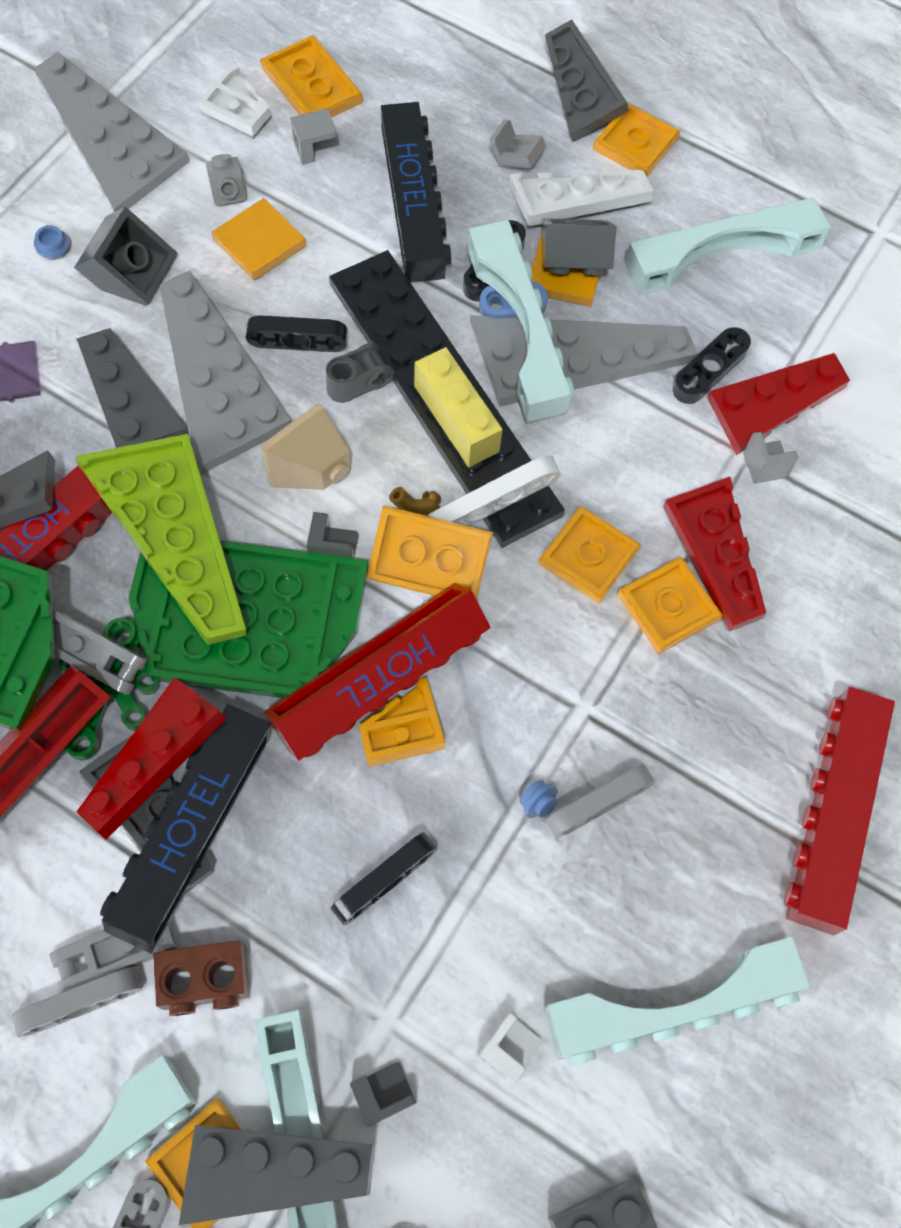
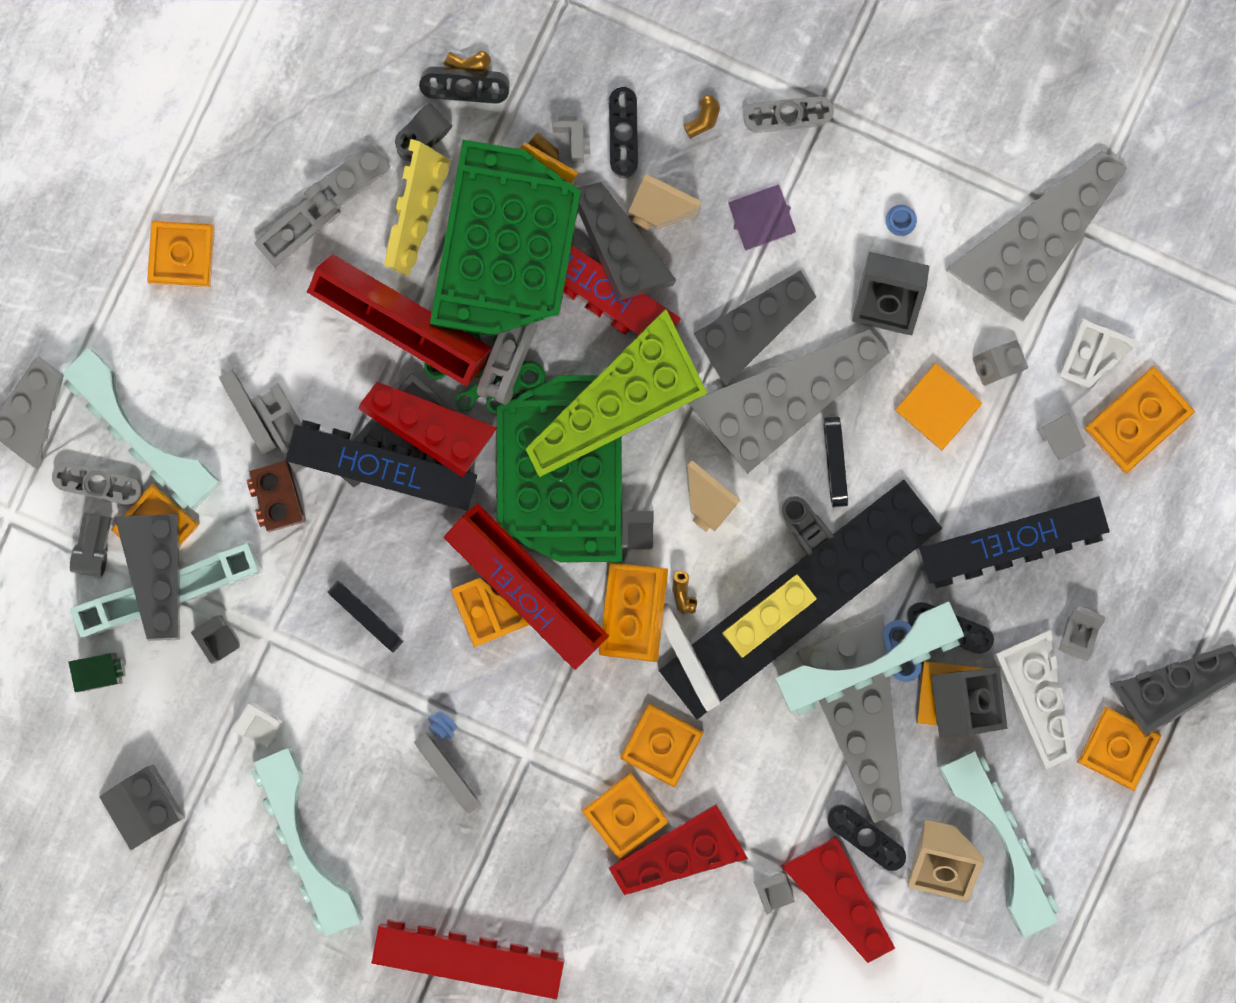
camera: 85 degrees right, 20 degrees up
(743, 292) = (945, 862): none -> tan slope

